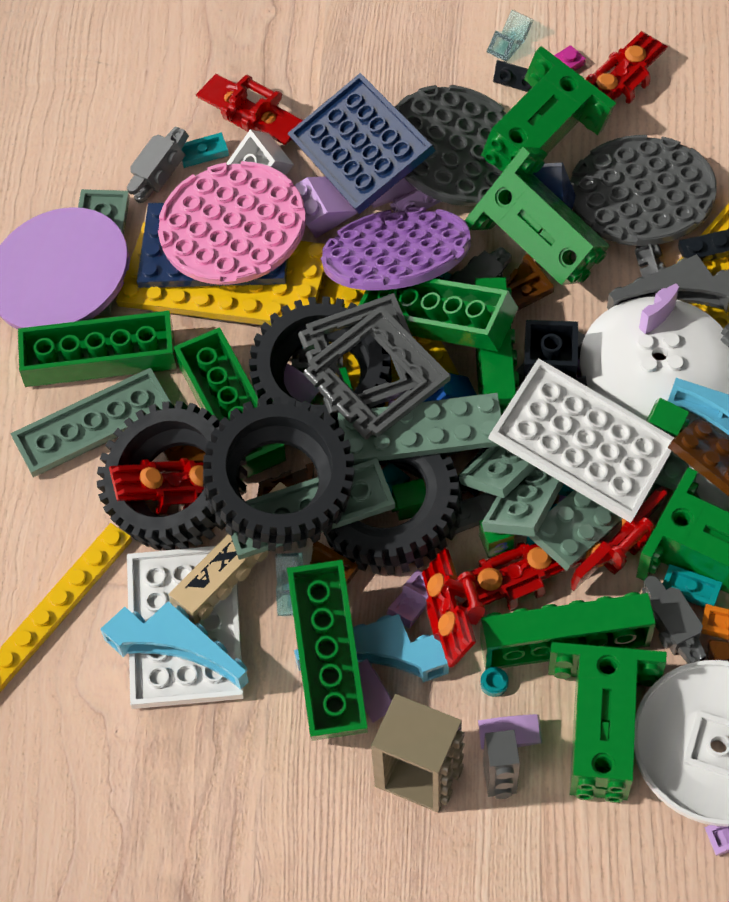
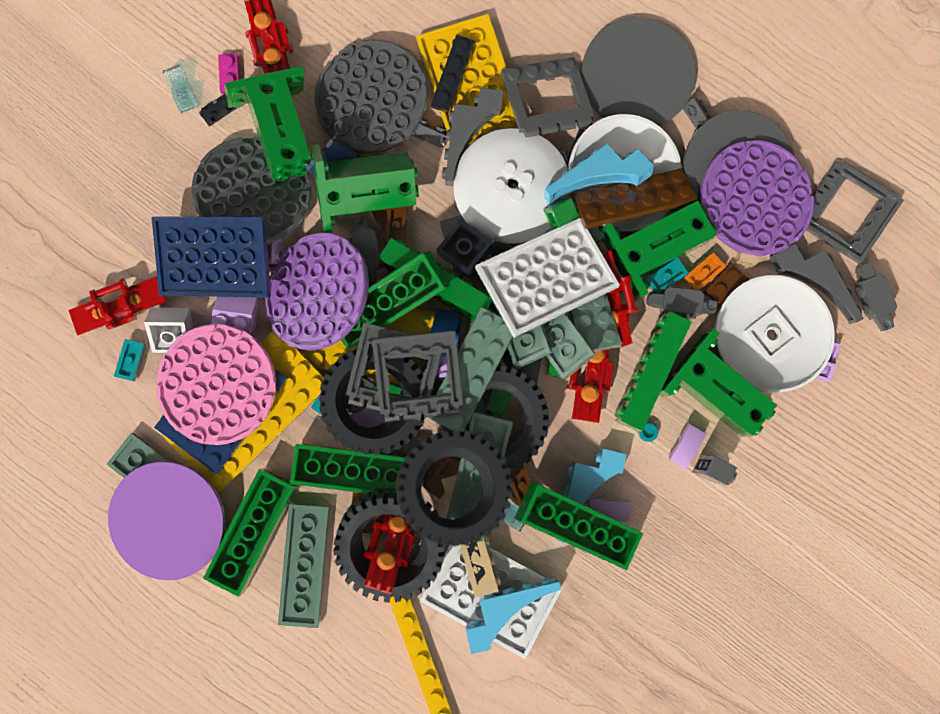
camera: 60 degrees left, 25 degrees up
(156, 163) = (122, 400): dark grey hinge -> none
(411, 600) = (564, 443): lavender slope -> none
(418, 753) = (684, 517): dark tan hose -> none
(448, 619) = (604, 440): red piece -> none
(657, 313) = (482, 156): lavender slope -> none

